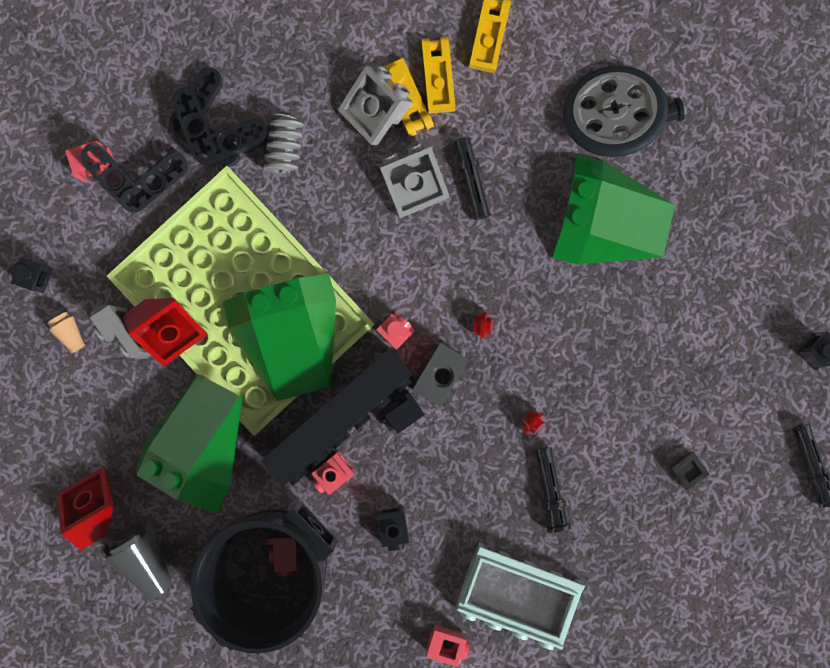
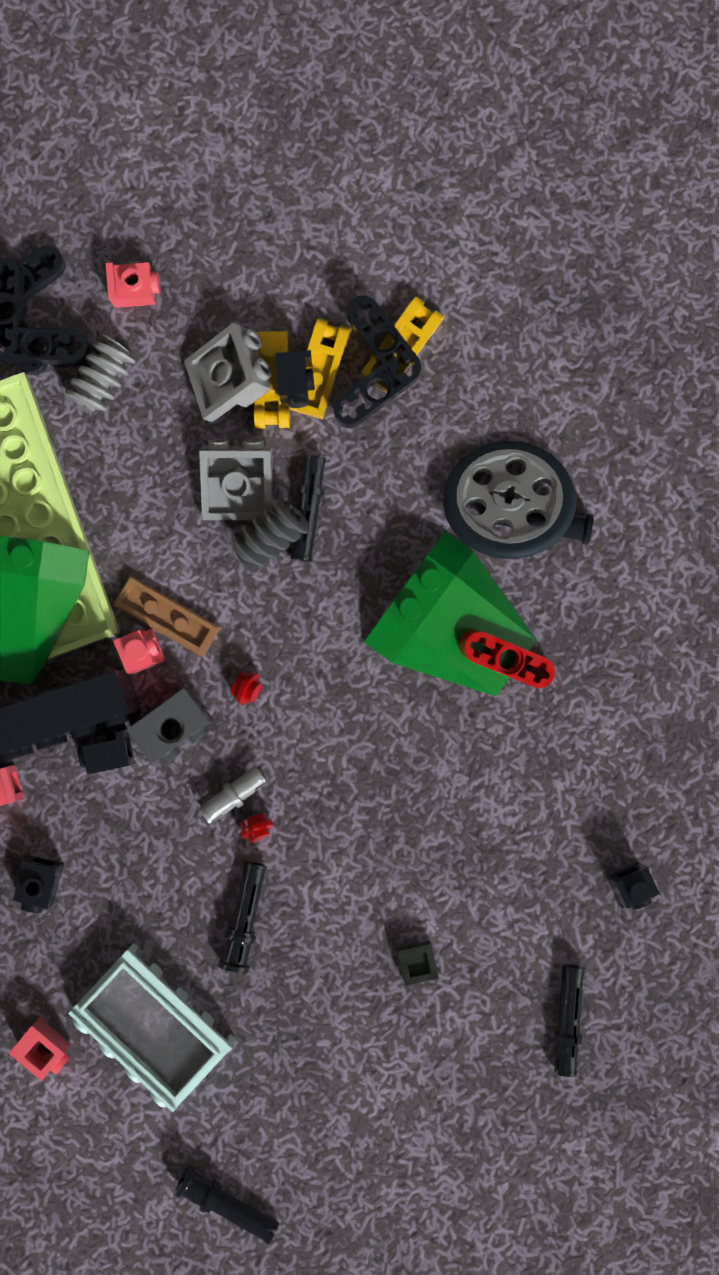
camera: 15 degrees right, 0 degrees up
(278, 79) = (132, 295): none -> coral brick
(402, 298) = (166, 616): none -> medium nougat tile
(425, 87) = (294, 378): none -> black brick
(455, 208) = (269, 536): none -> dark grey piece
(489, 55) = (385, 373): none -> black beam
(506, 406) = (232, 795): none -> light grey pin
(651, 231) = (520, 658): none -> red beam

